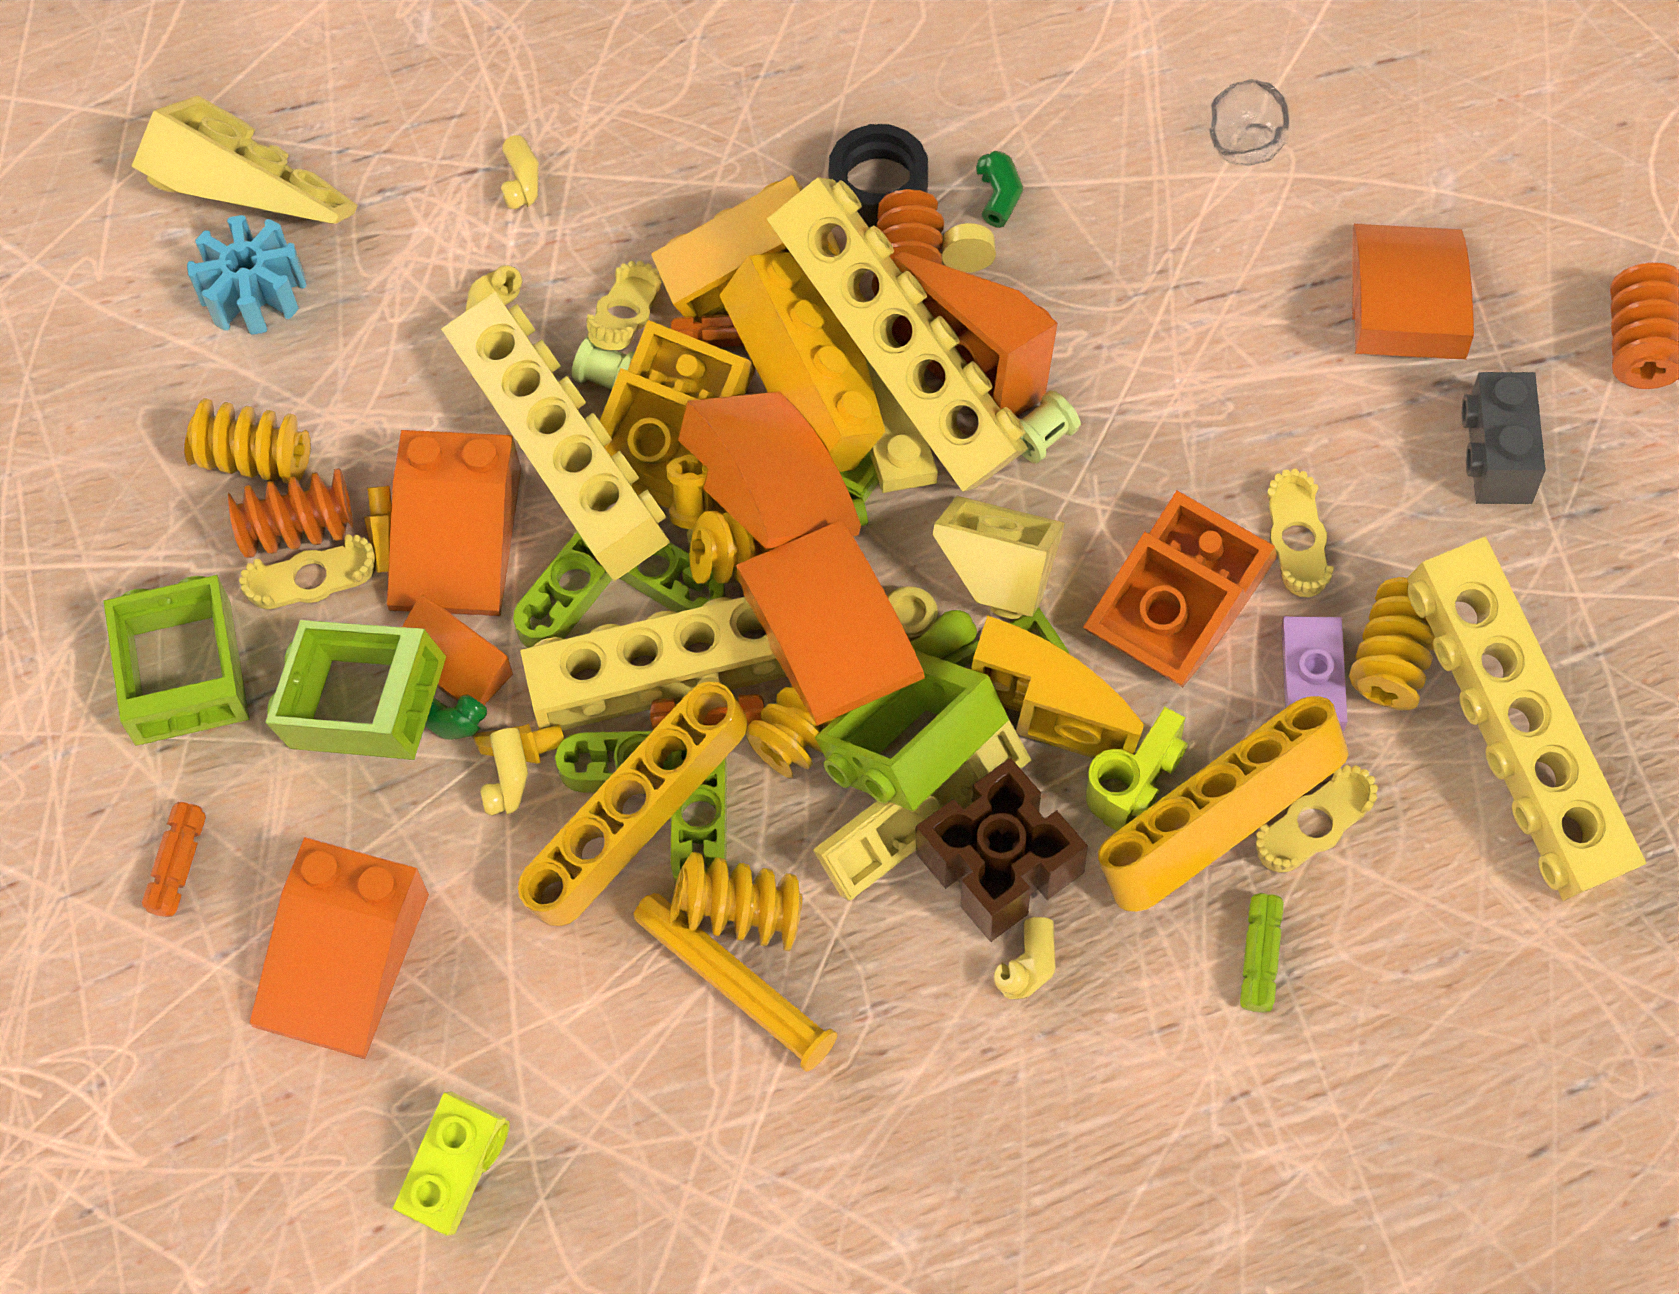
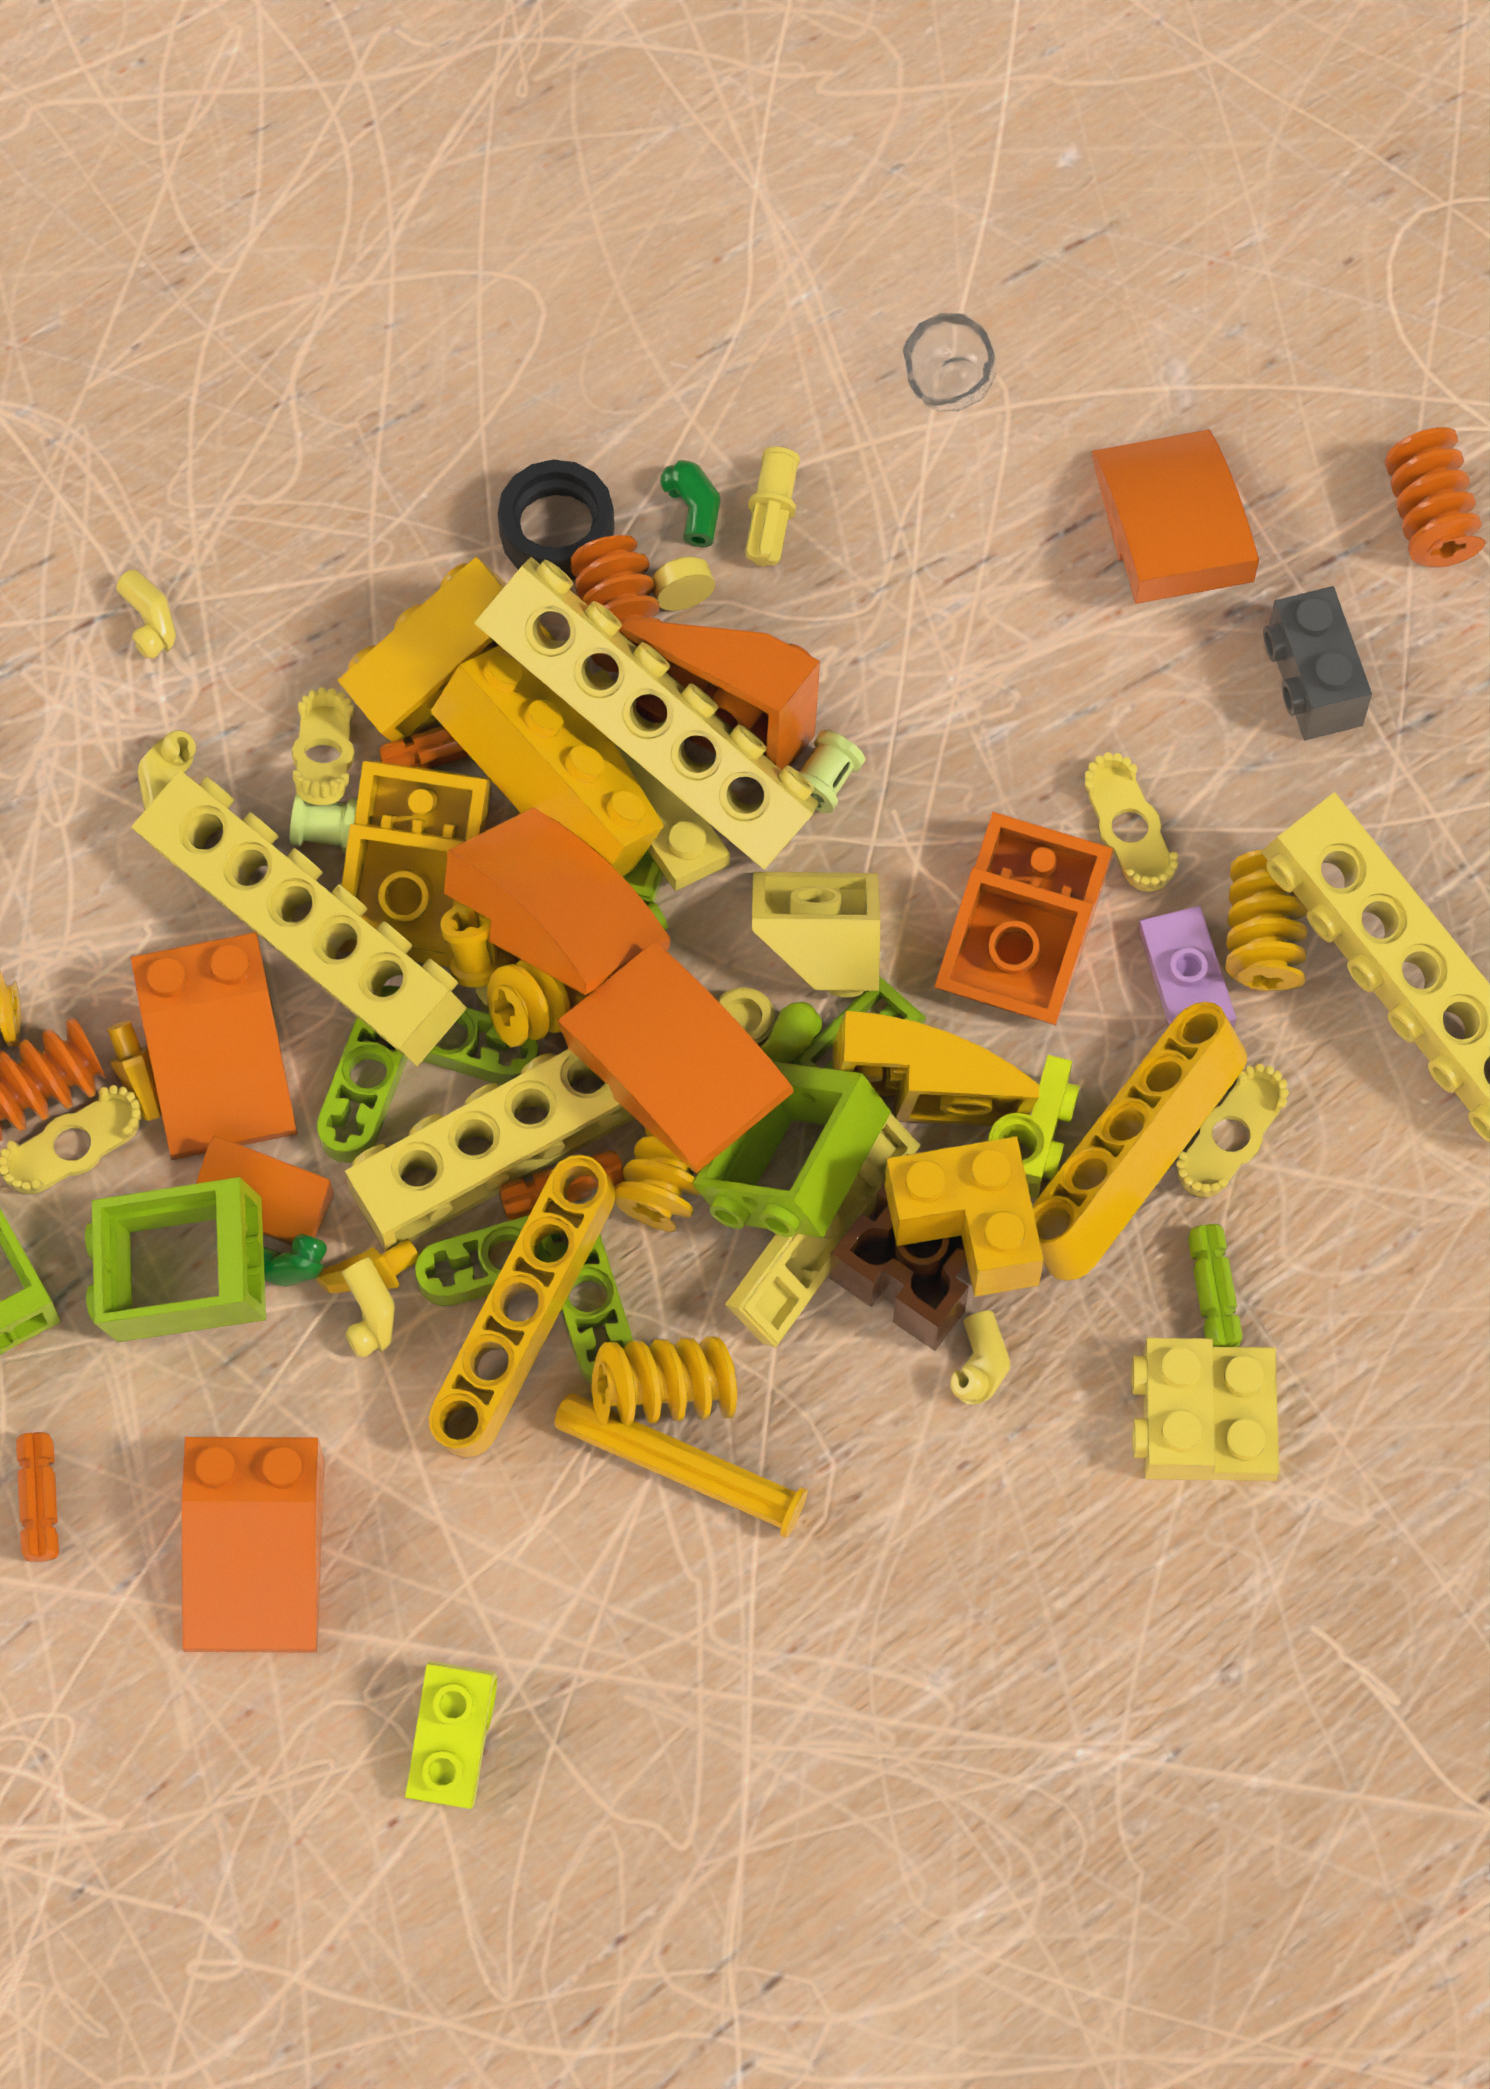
camera: 20 degrees left, 5 degrees up
(1050, 803) = (972, 1194): none -> yellow brick
(1064, 205) = (772, 506): none -> light yellow axle
(1222, 1061) = (1206, 1411): none -> light yellow plate

